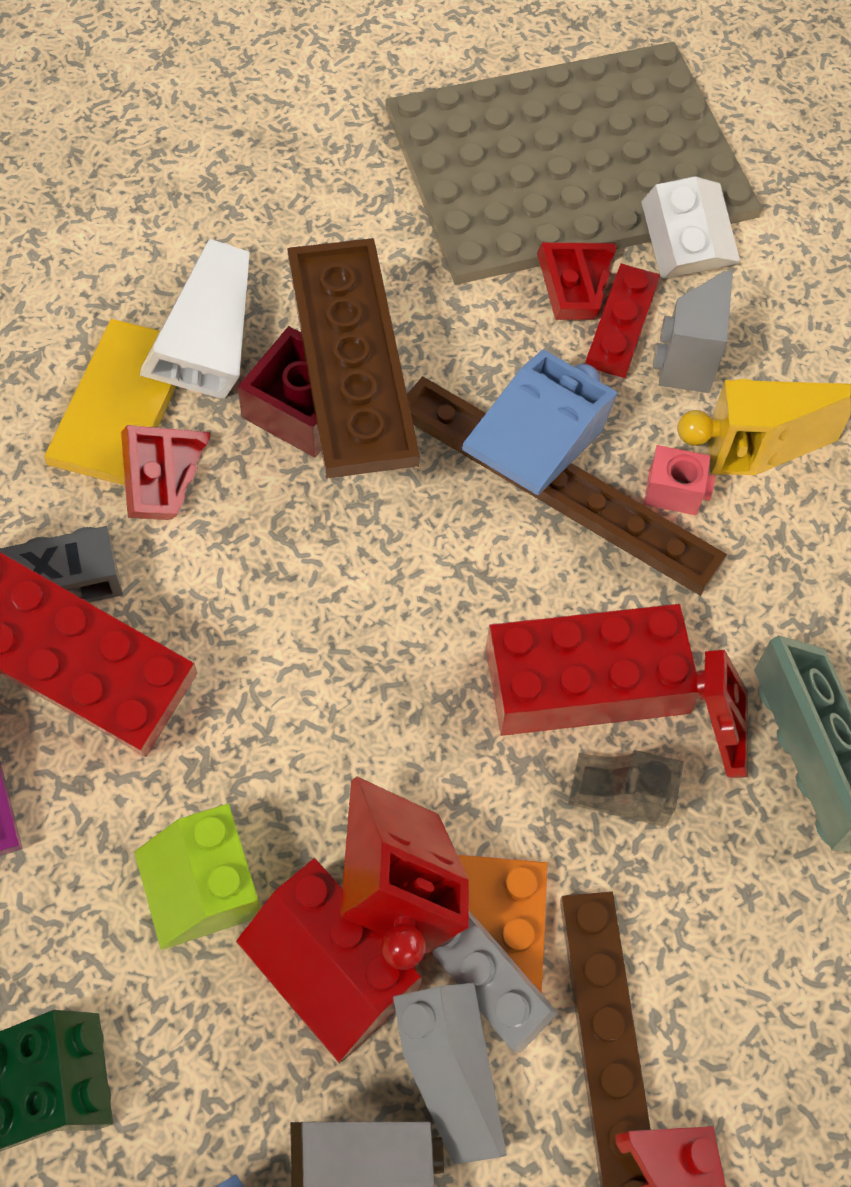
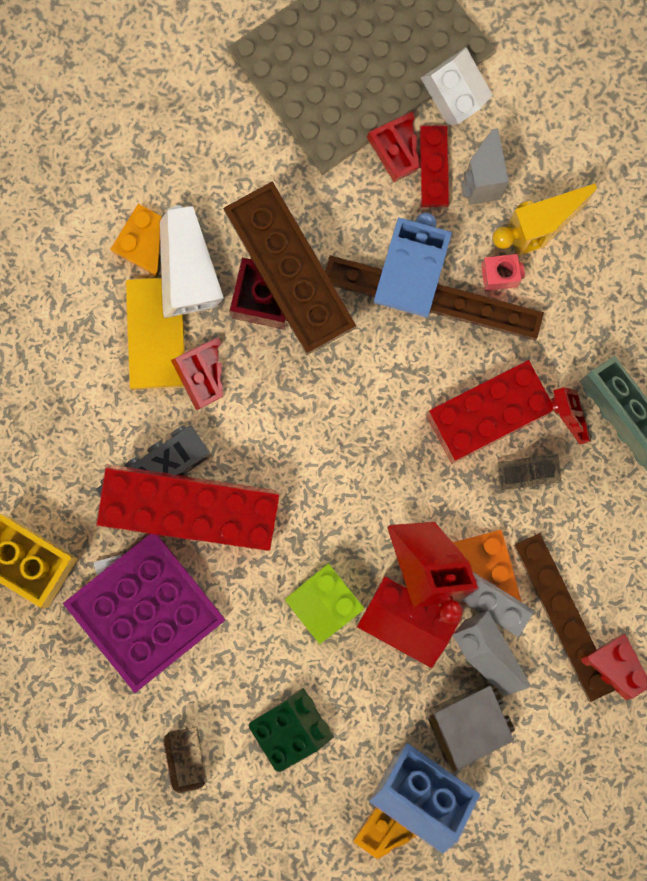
camera: 15 degrees left, 20 degrees up
(155, 279) = (140, 240): none -> light orange wing

